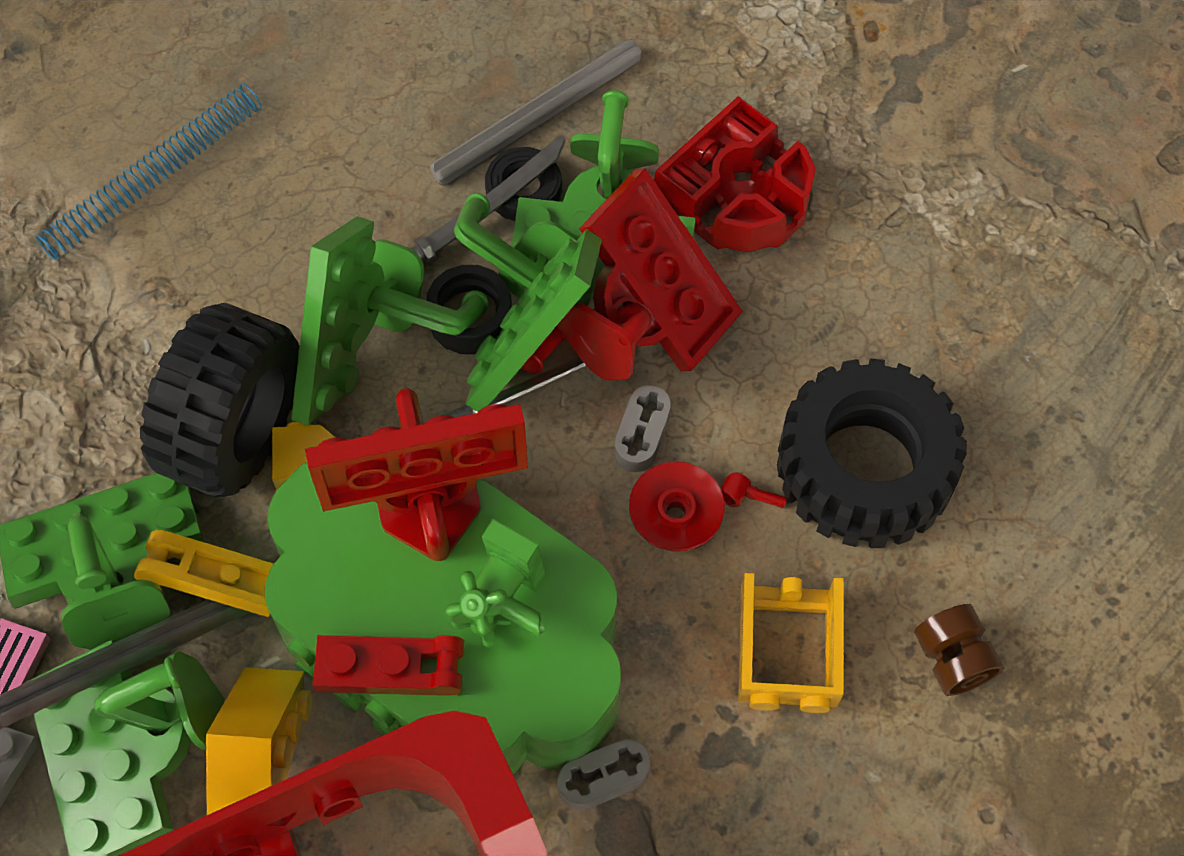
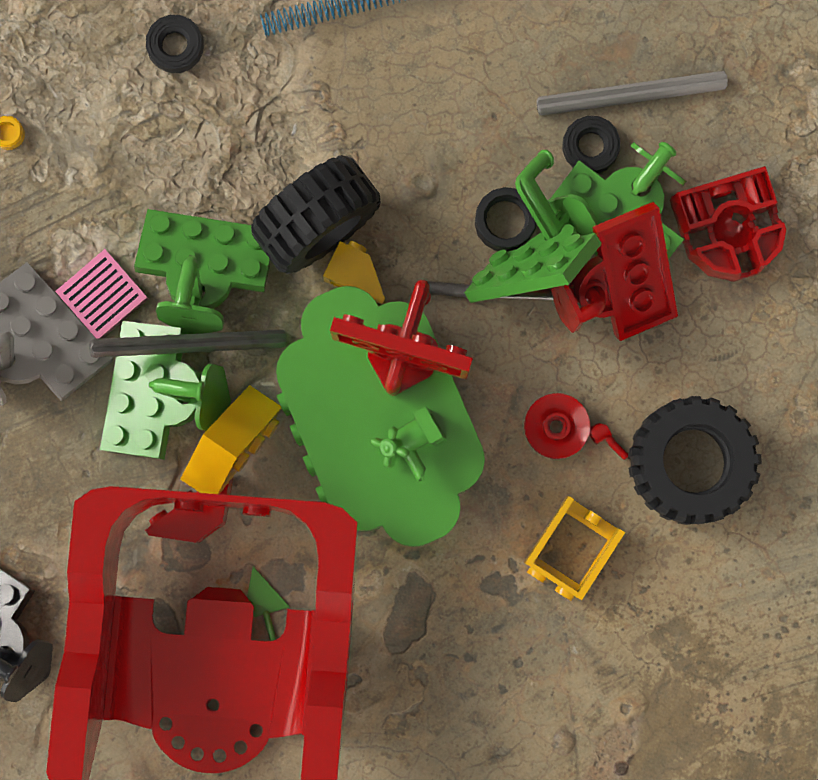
camera: 30 degrees right, 20 degrees up
(206, 571) = (256, 317): yellow plate -> none
(350, 291) = (446, 174): bright green plate -> none
(387, 665) = (325, 444): red plate -> none
(429, 246) = (504, 159): flat silver sword -> none
(607, 786) = (422, 554): light grey beam -> none
(651, 431) = (572, 366): light grey beam -> none
(956, 632) = (664, 598): reddish brown wheel -> none

